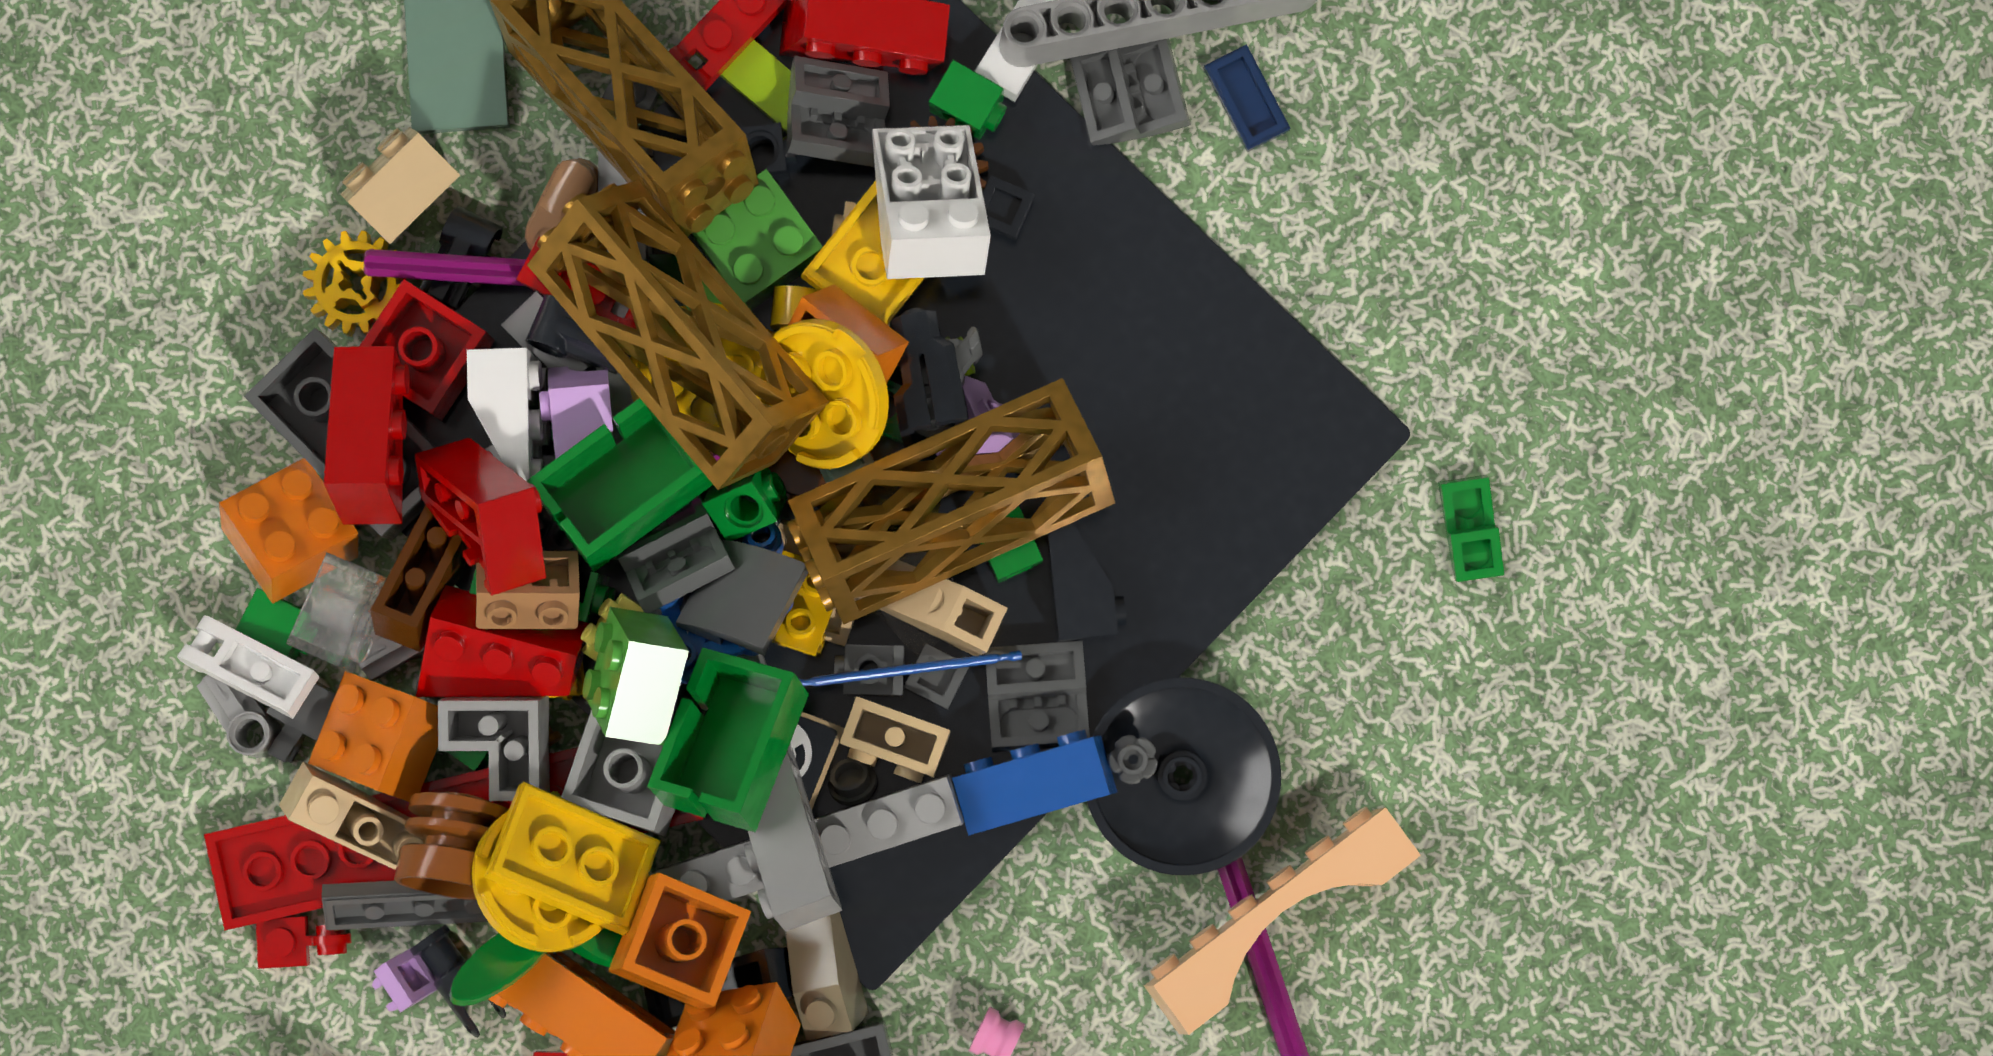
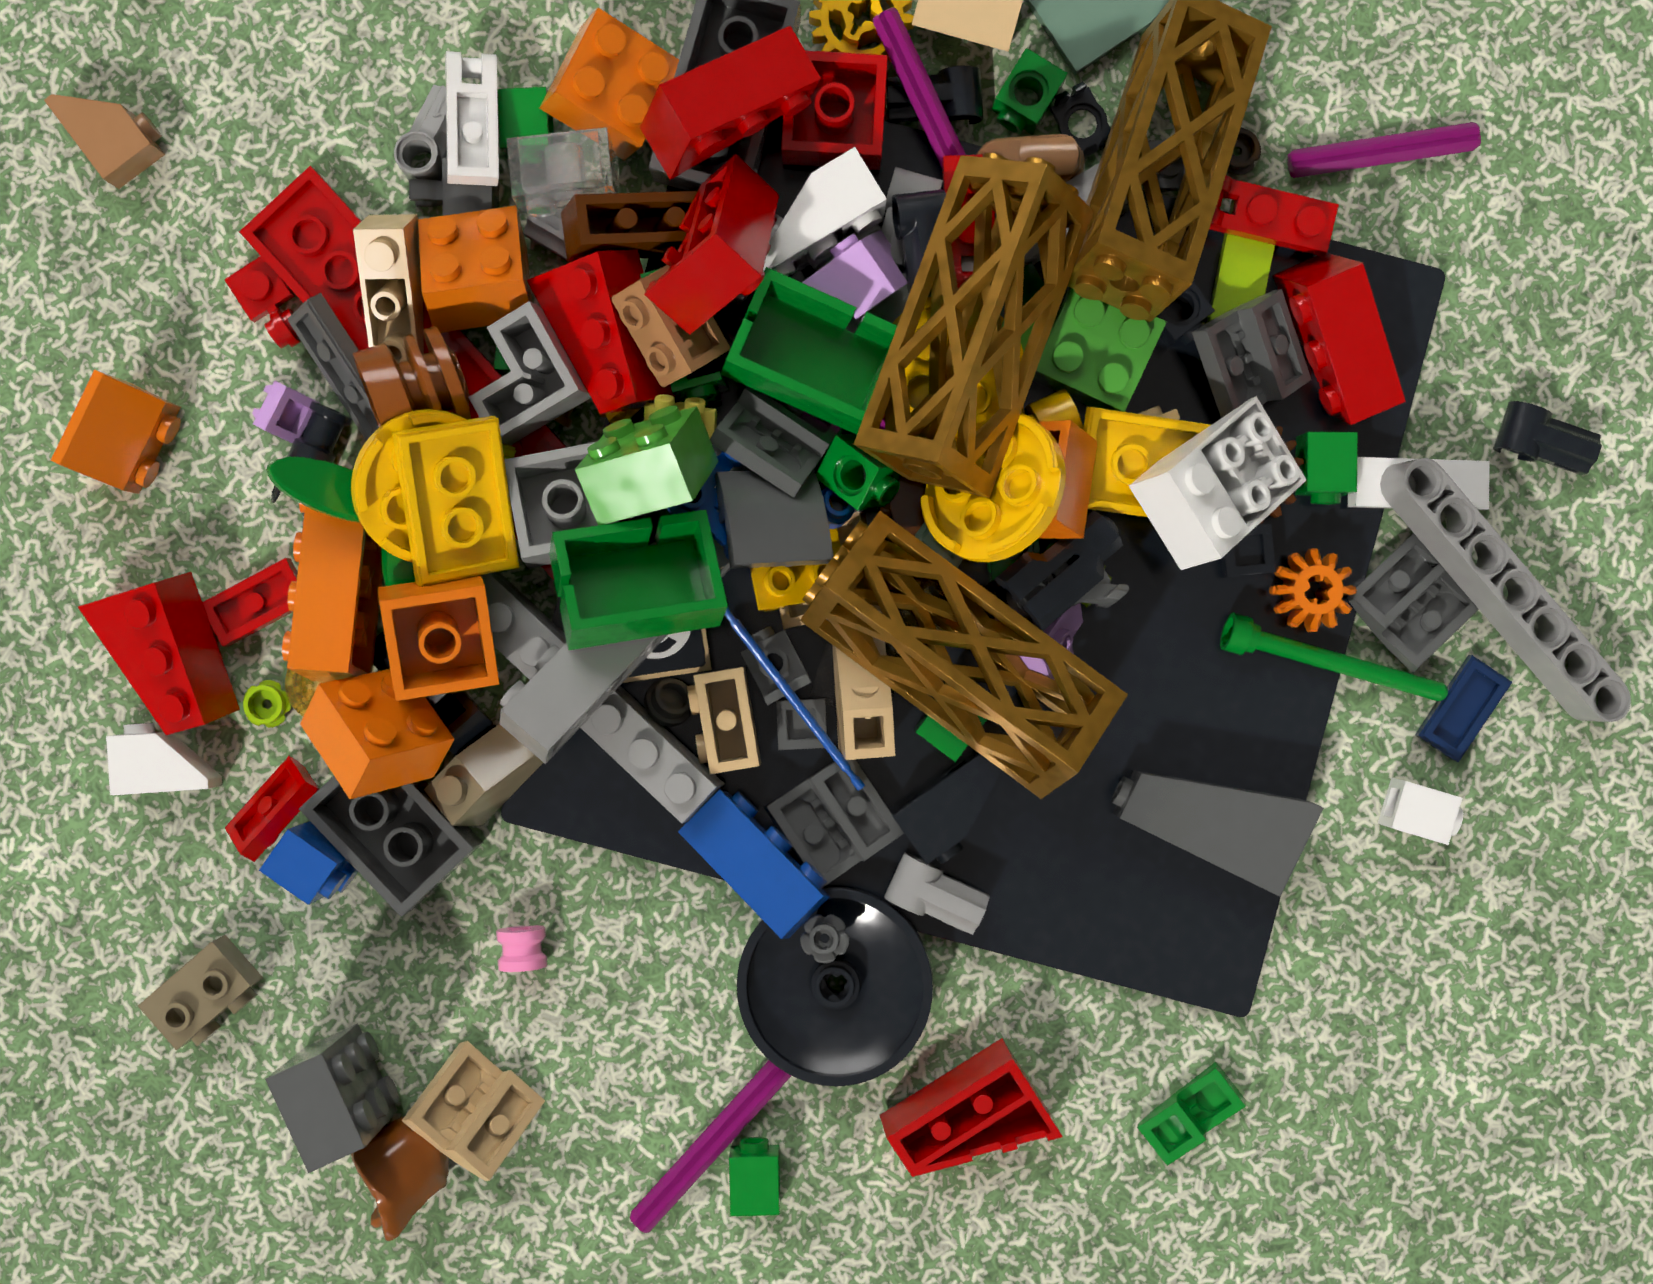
camera: 65 degrees right, 5 degrees up
(74, 997) = (109, 136): none -> medium nougat slope
(496, 157) = (1032, 73): none -> green brick
(533, 134) = (1081, 99): none -> black piece
(664, 16) = (1250, 152): none -> dark brown plate
(1074, 251) = (1243, 636): none -> green piece
(1082, 162) = (1298, 581): none -> orange gear
(1143, 647) = (925, 889): none -> light grey piece
(1202, 980) = (667, 1103): light nougat arch -> none
(1233, 357) = (1228, 826): none -> dark grey slope
(1313, 183) = (1421, 811): none -> white brick
(1314, 943) = (754, 1178): none -> green brick
(1359, 720) = (968, 1113): none -> red wedge

